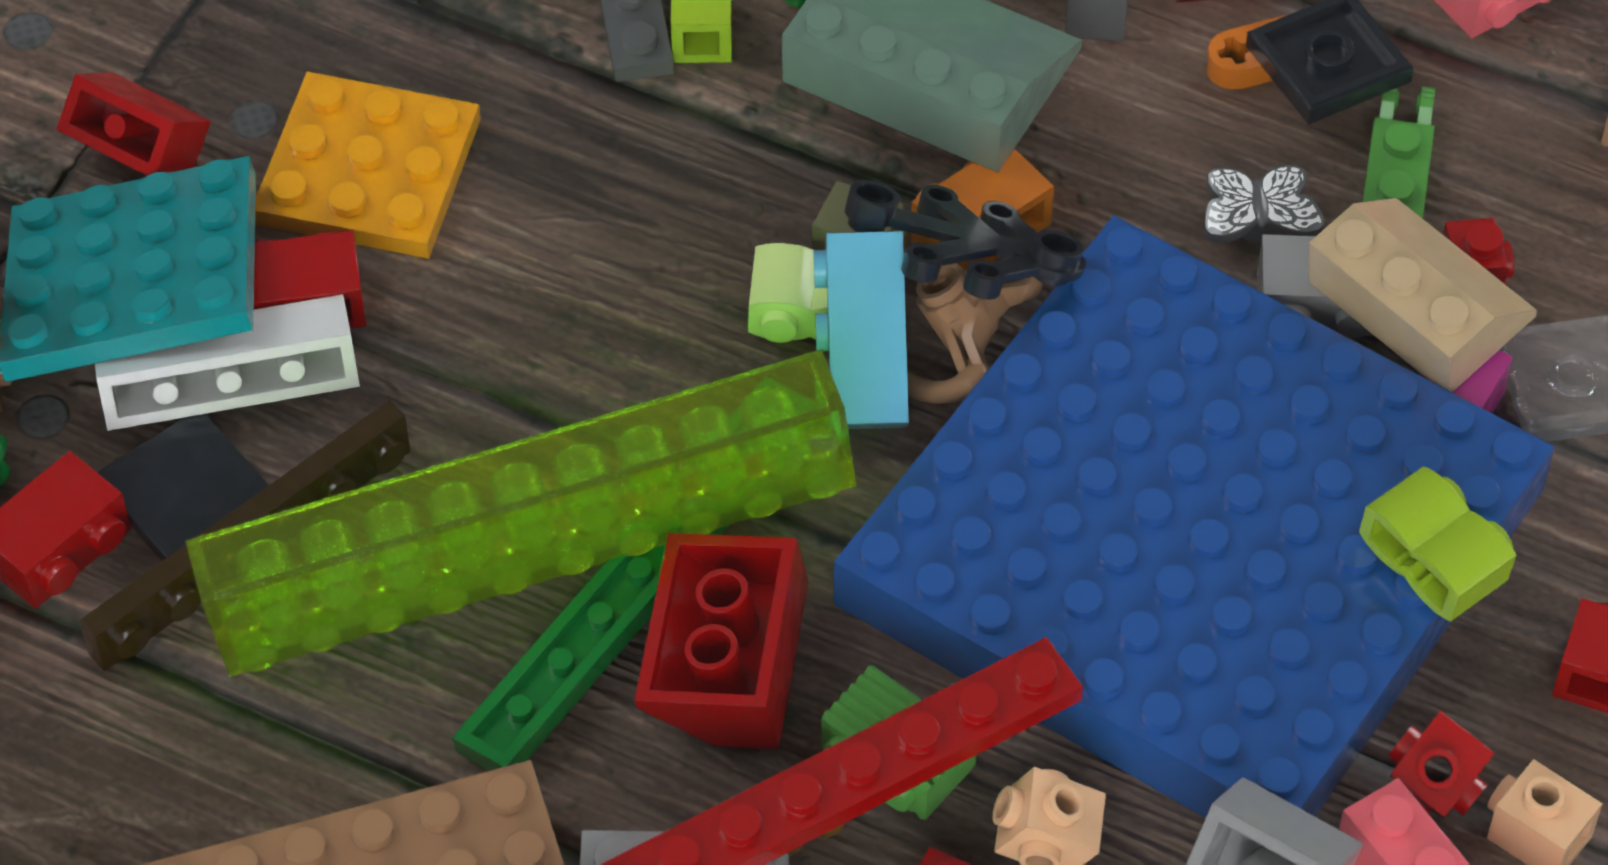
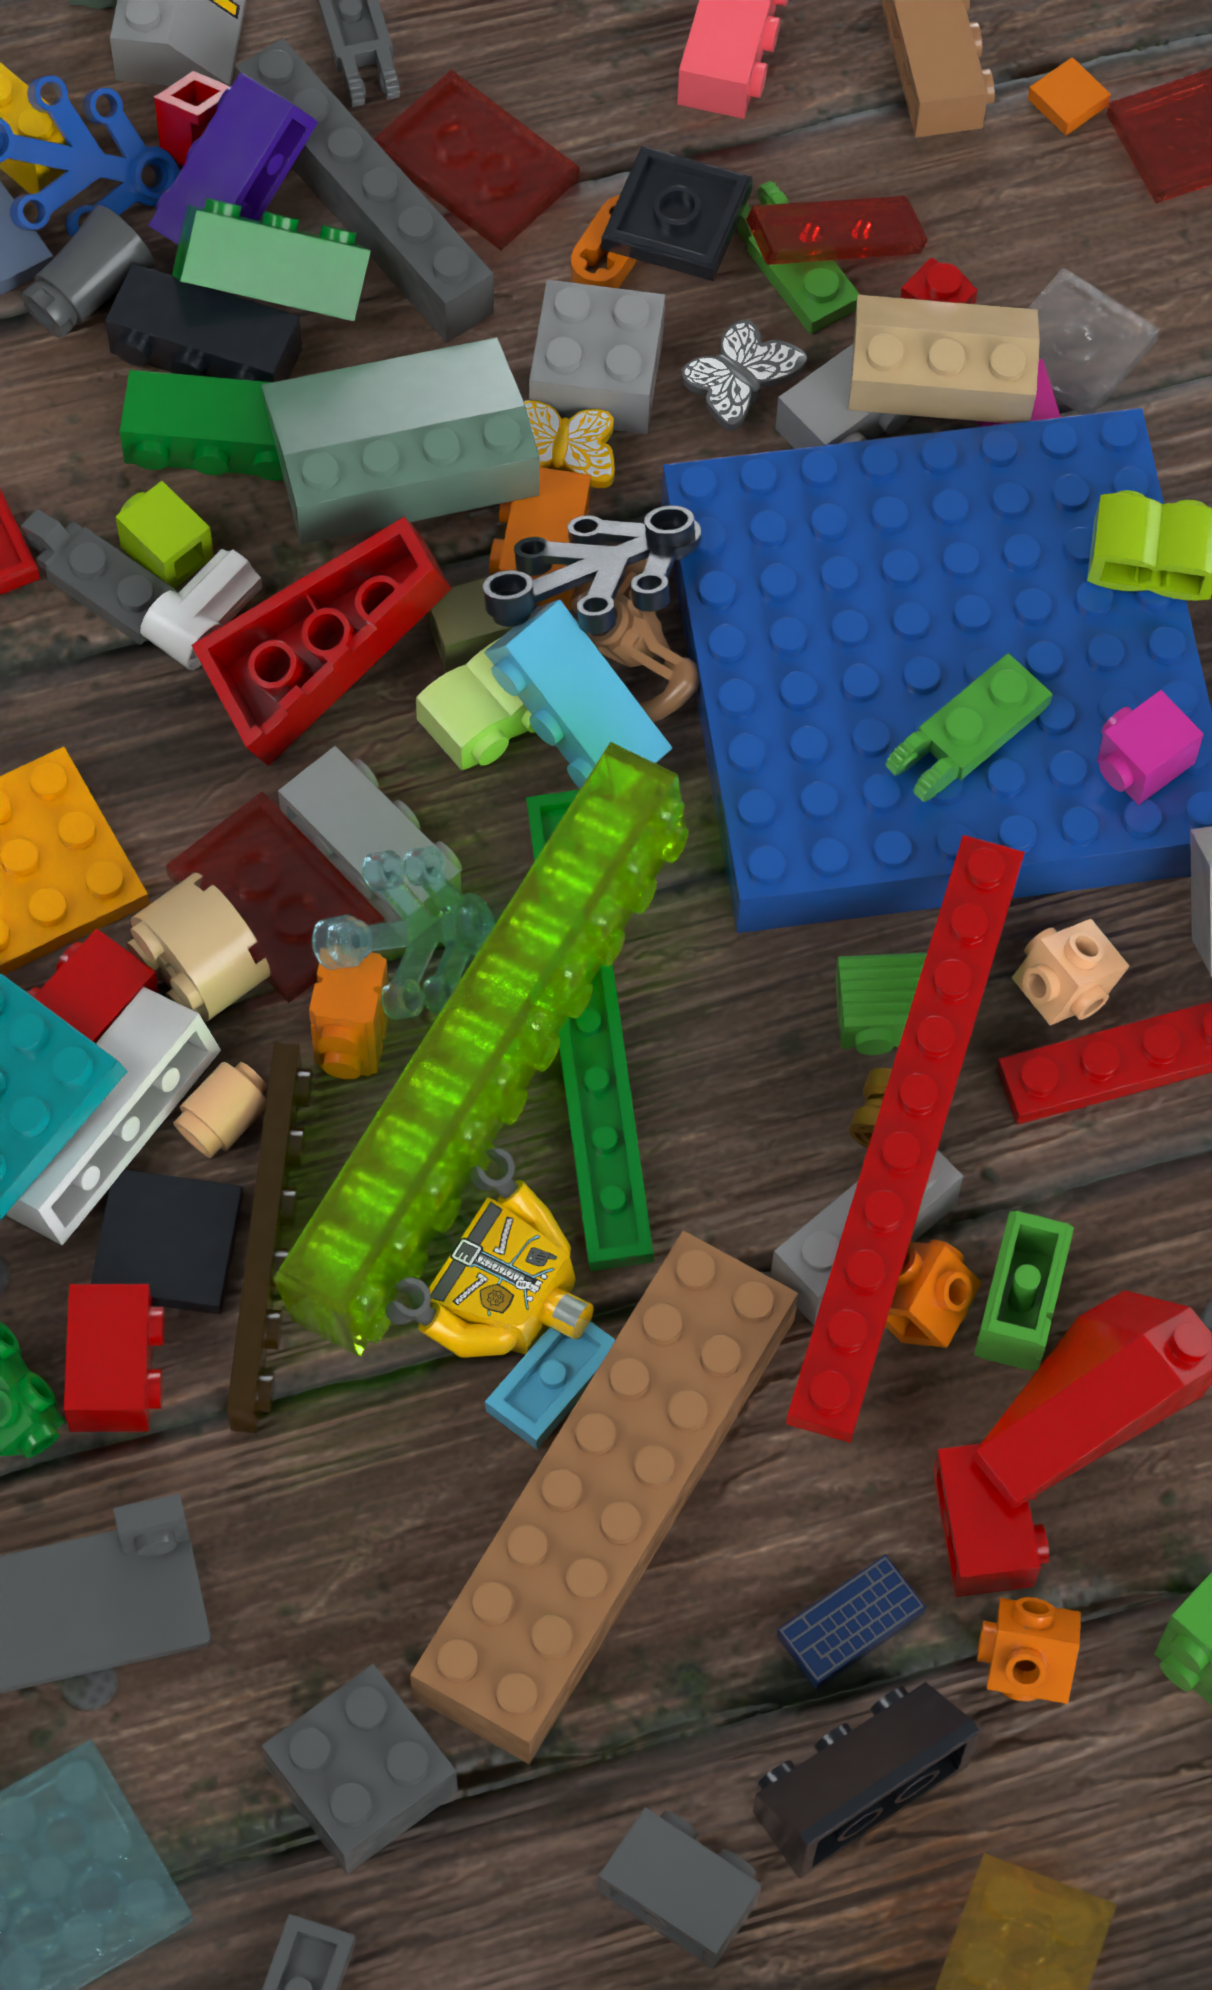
camera: 45 degrees left, 10 degrees up
(311, 422) = (222, 1108): none -> light nougat brick
(335, 787) = (548, 1383): none -> medium azure plate
(374, 696) = (502, 1278): none -> yellow torso
(405, 297) = (197, 947): none -> tan brick
(461, 409) = (349, 1018): none -> orange brick
(518, 318) = (276, 886): none -> clear red tile
(566, 397) = (461, 927): none -> clear light blue plant
(620, 323) = (349, 817): none -> light grey brick
(658, 85) = (201, 606): none -> white piece
(723, 149) = (318, 636): none -> red wedge
(724, 637) = (712, 1020): red slope -> none
(1068, 158) = (575, 442): none -> animal
(1140, 567) = (972, 726): none -> bright green hinge
(1158, 115) = (598, 352): none -> light grey brick
(1266, 685) = (1147, 747): none -> dark pink brick
(1447, 154) = (836, 230): none -> clear red tile

